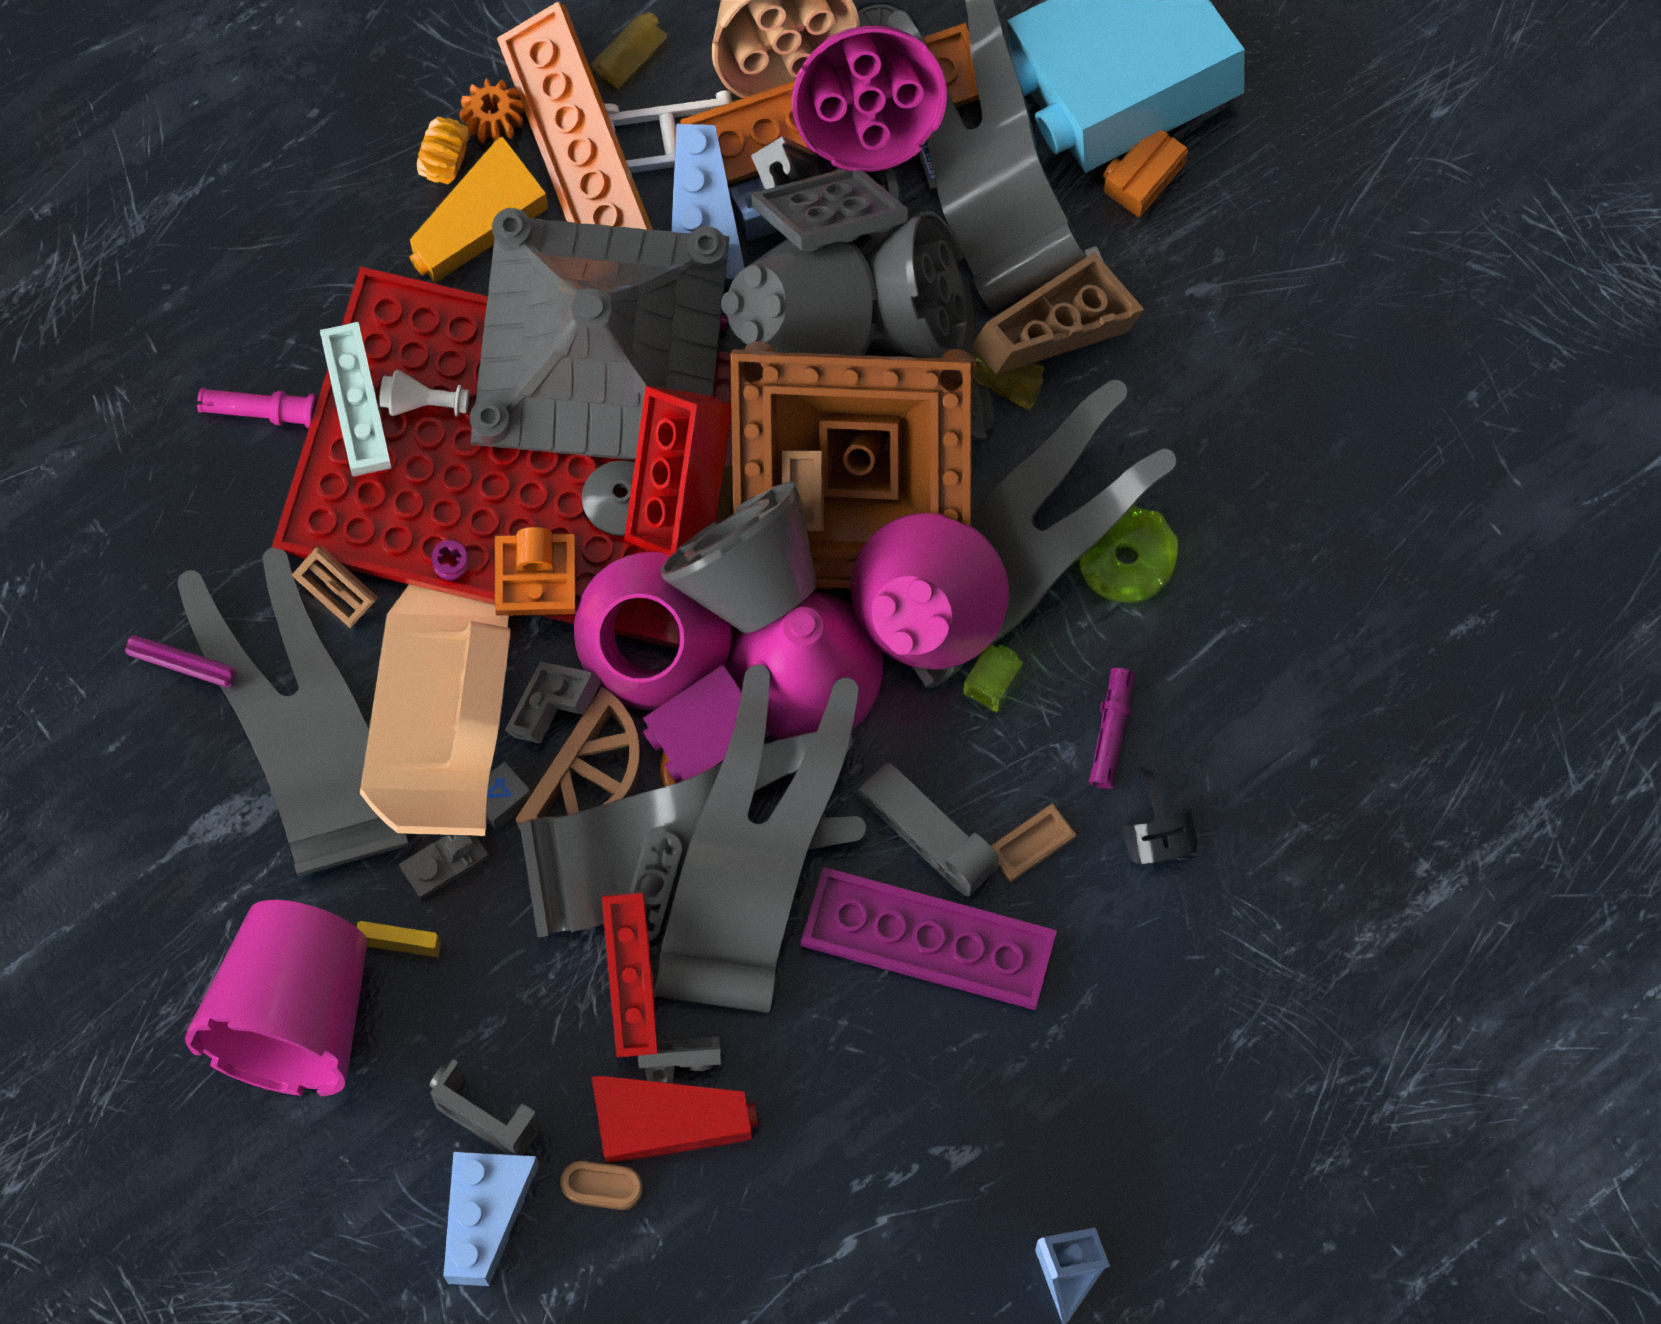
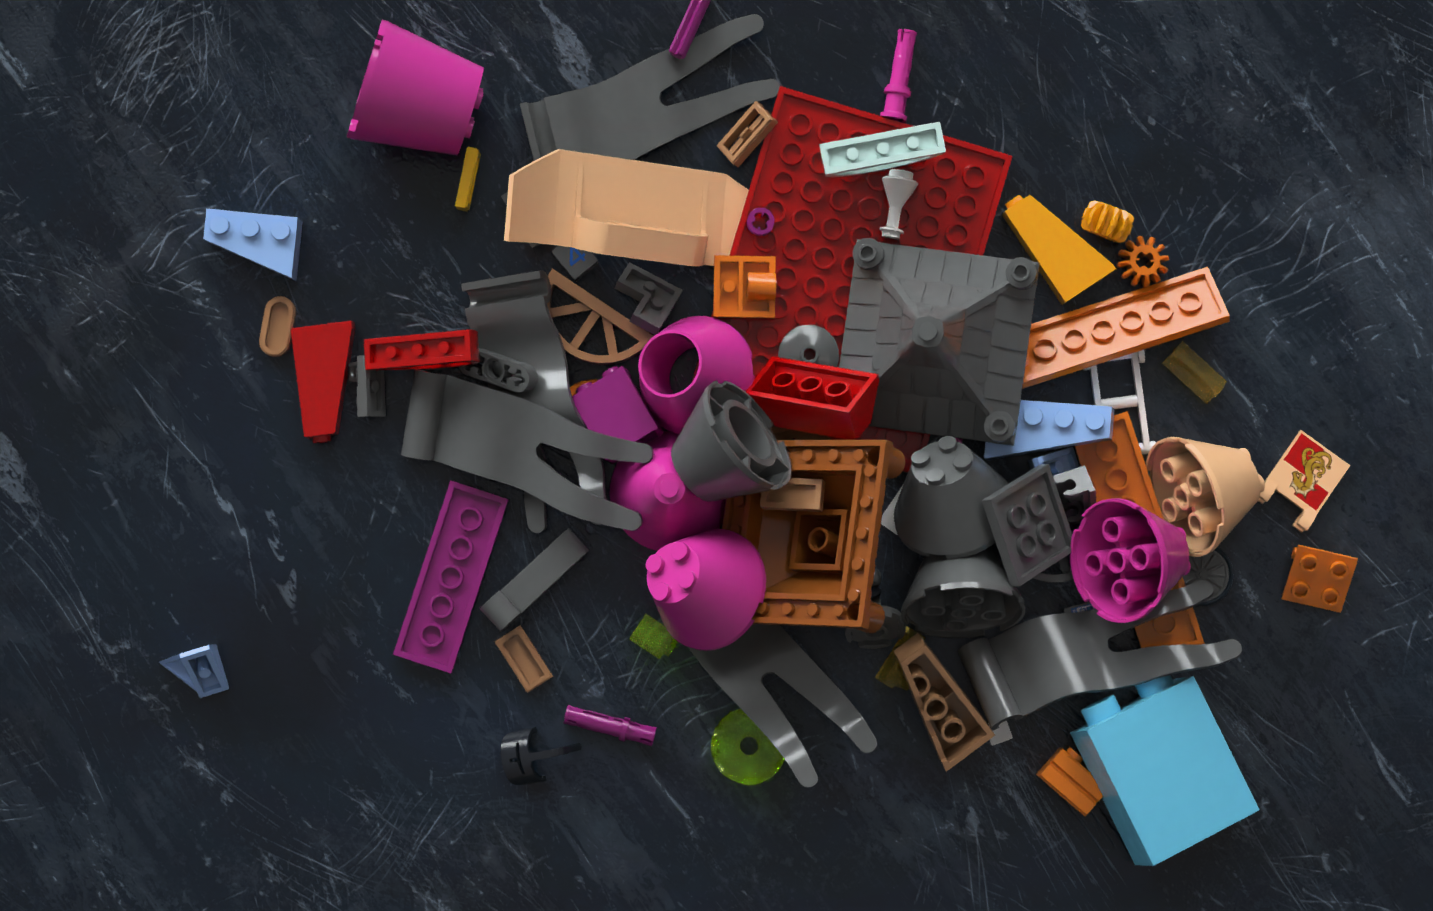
camera: 90 degrees right, 15 degrees up
(509, 1138) = (323, 234): dark grey panel -> none

